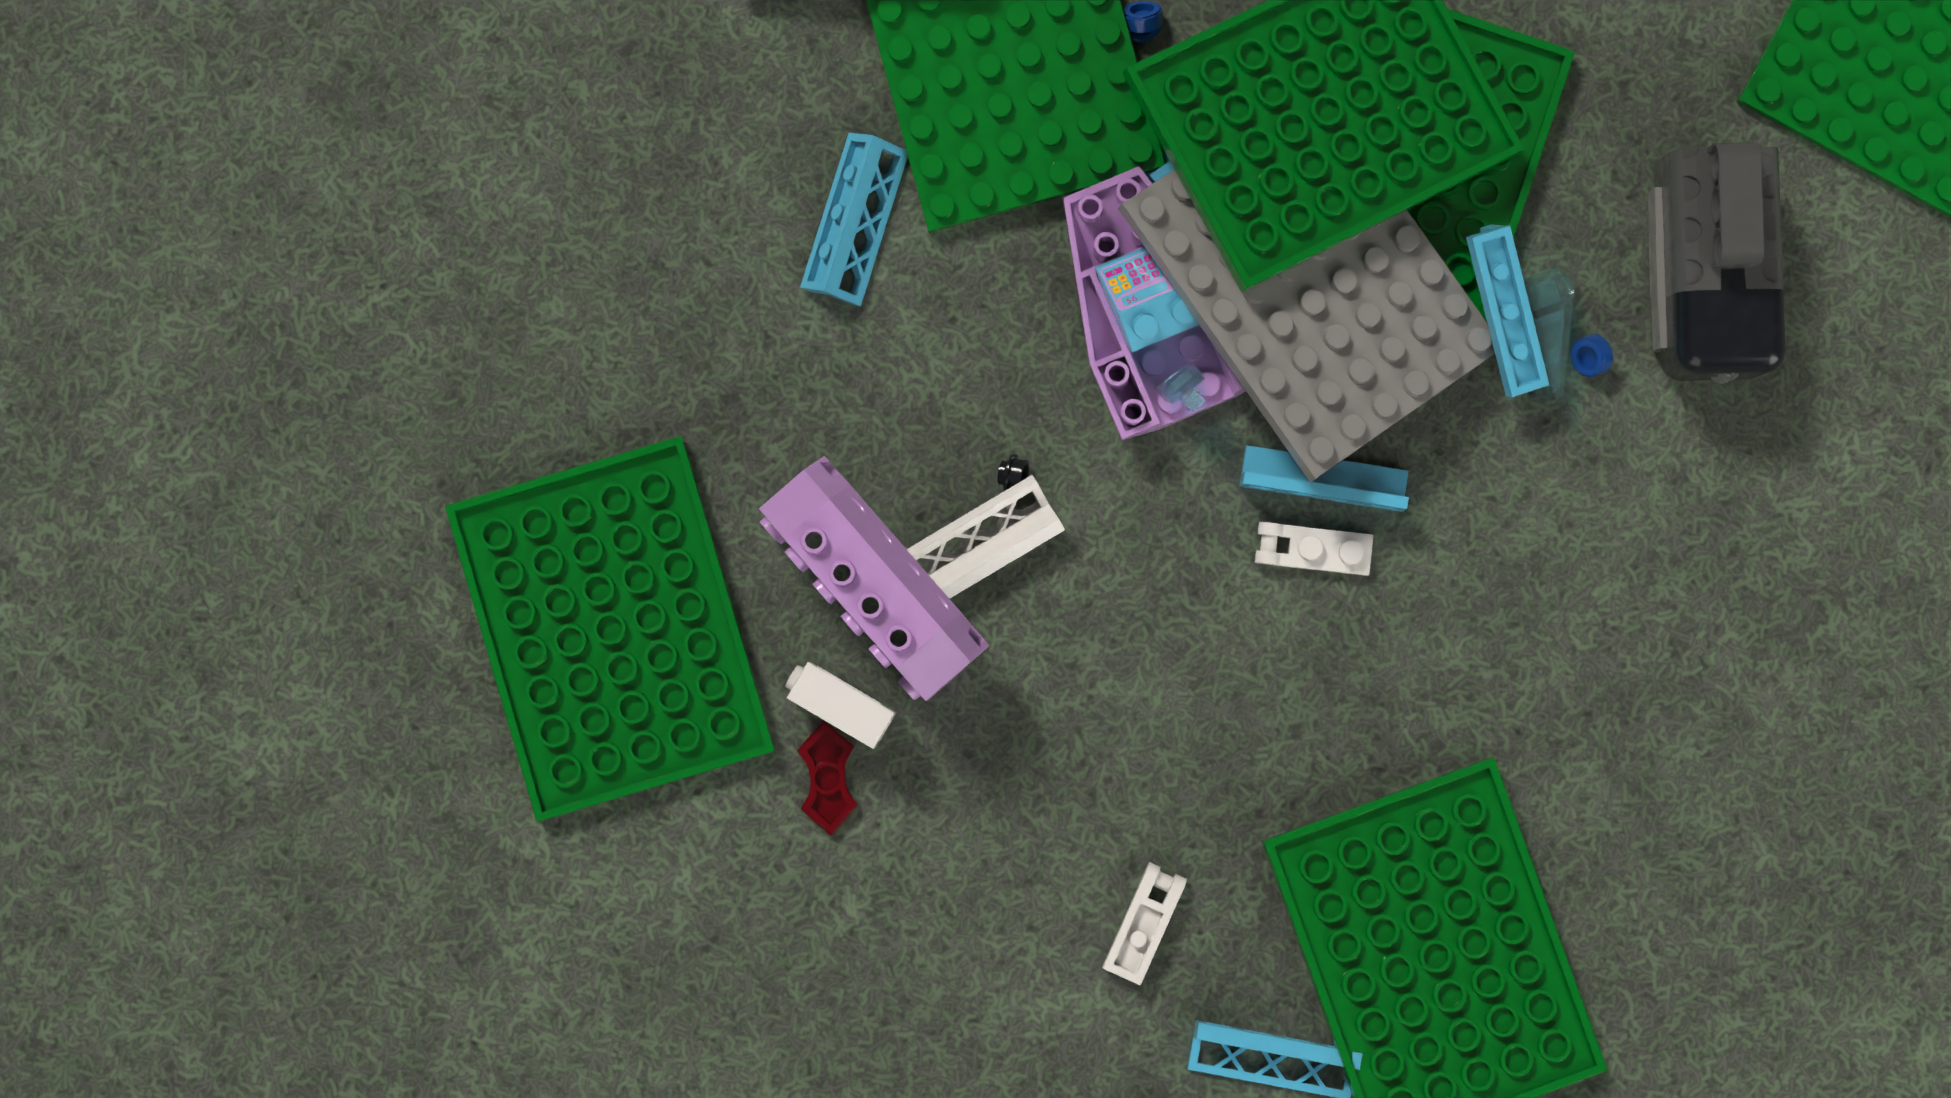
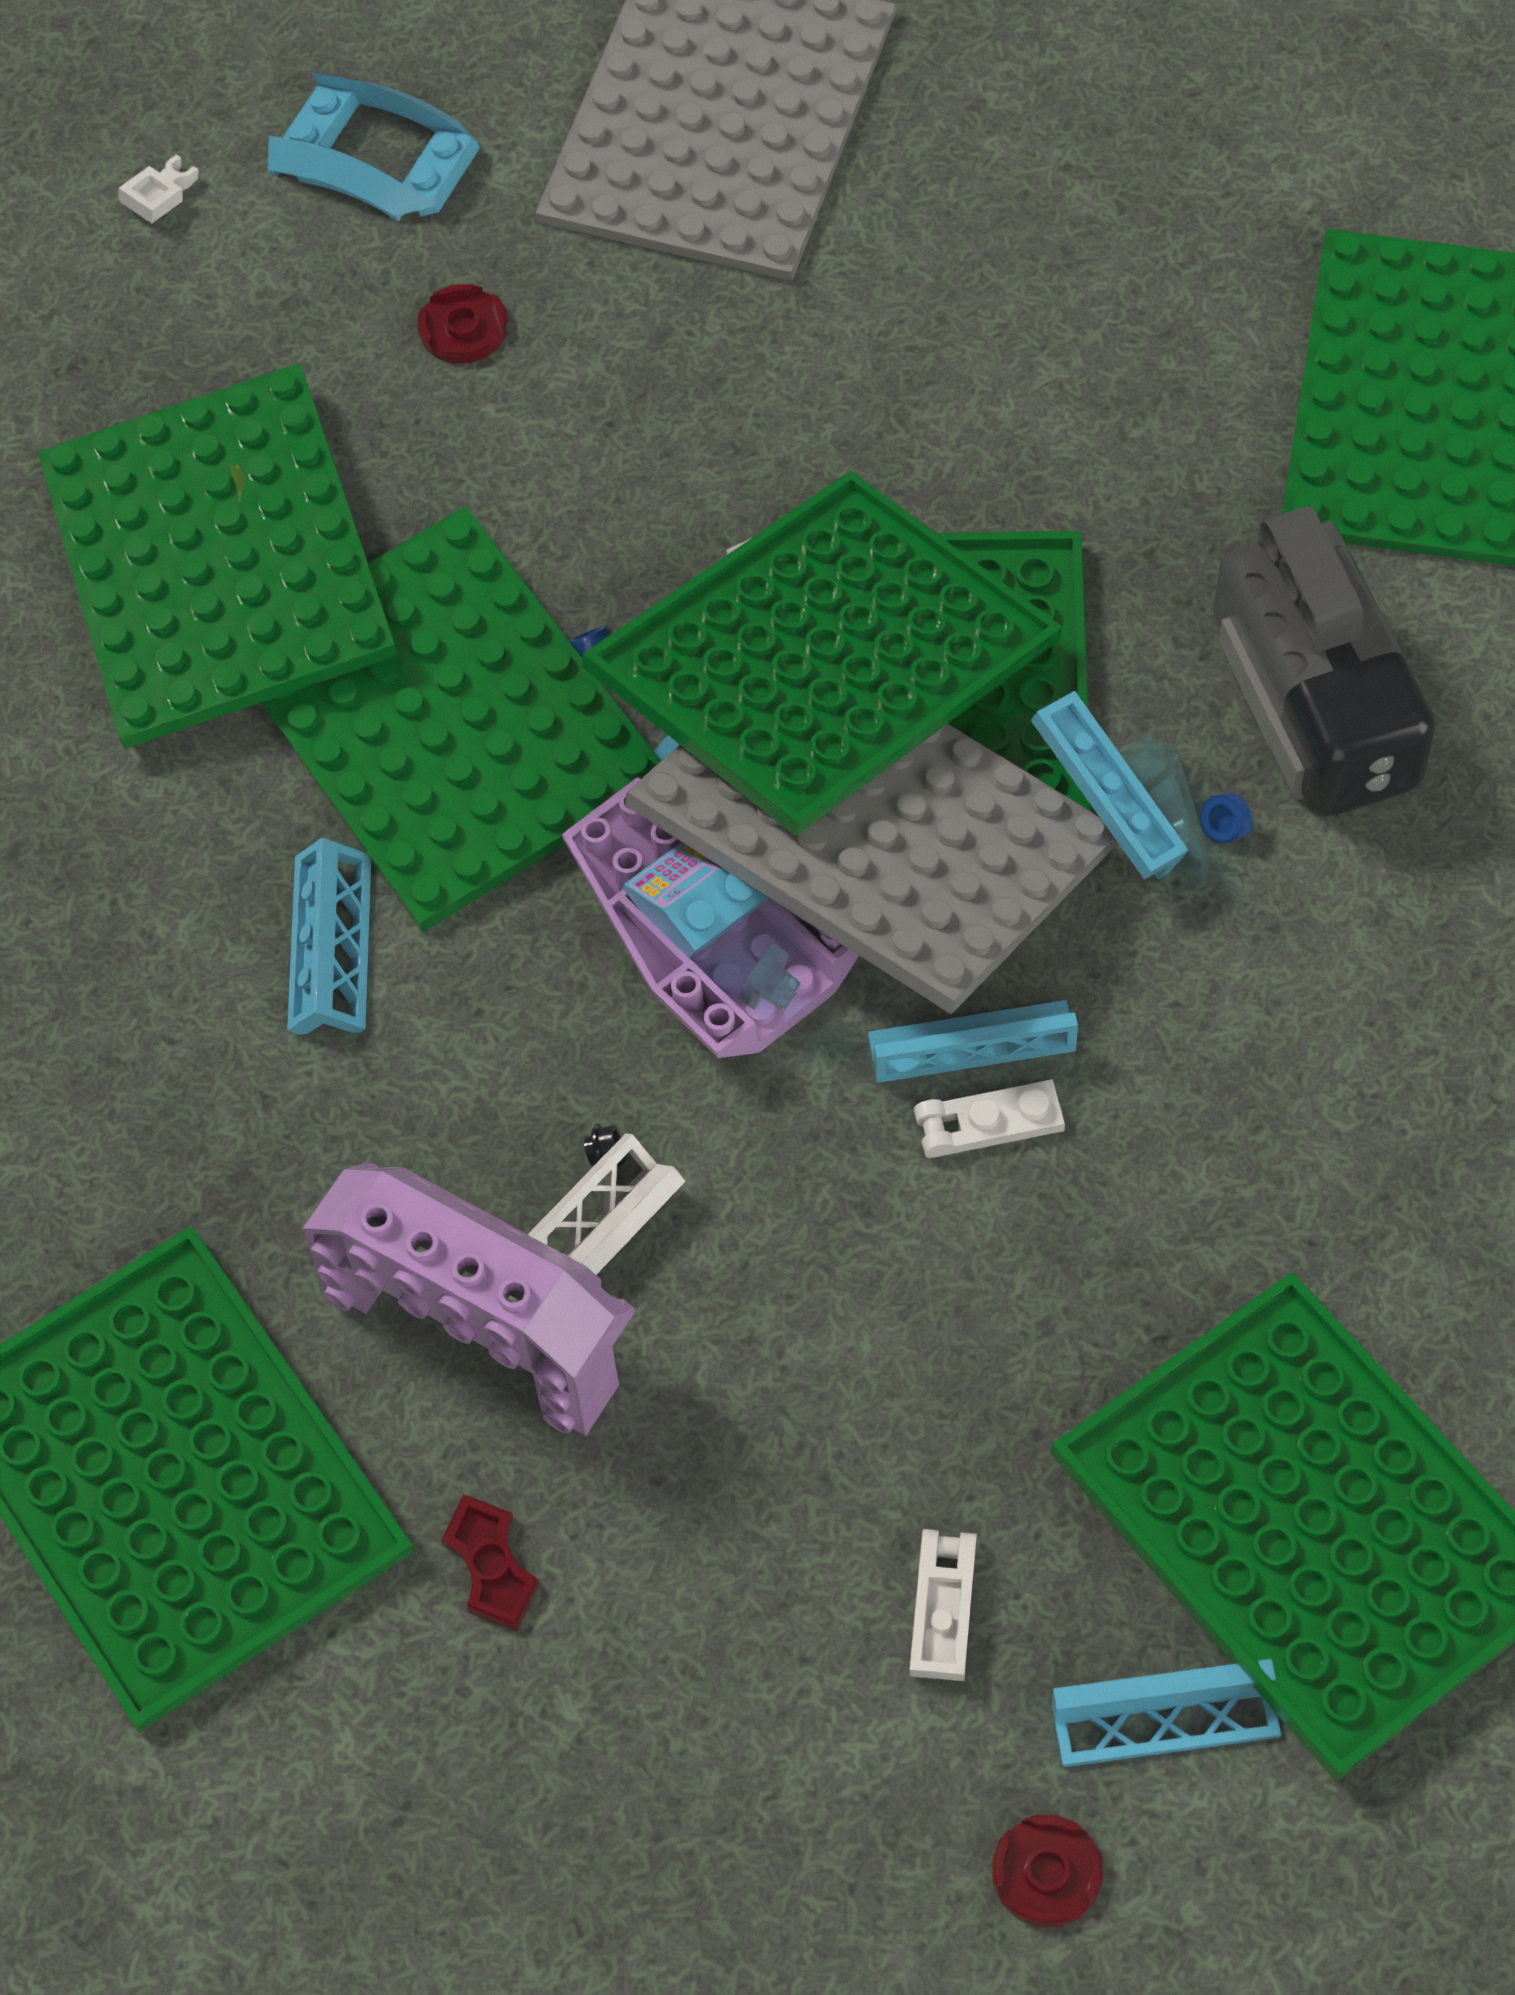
camera: 15 degrees left, 25 degrees down
(839, 704) = (477, 1454): white window -> none

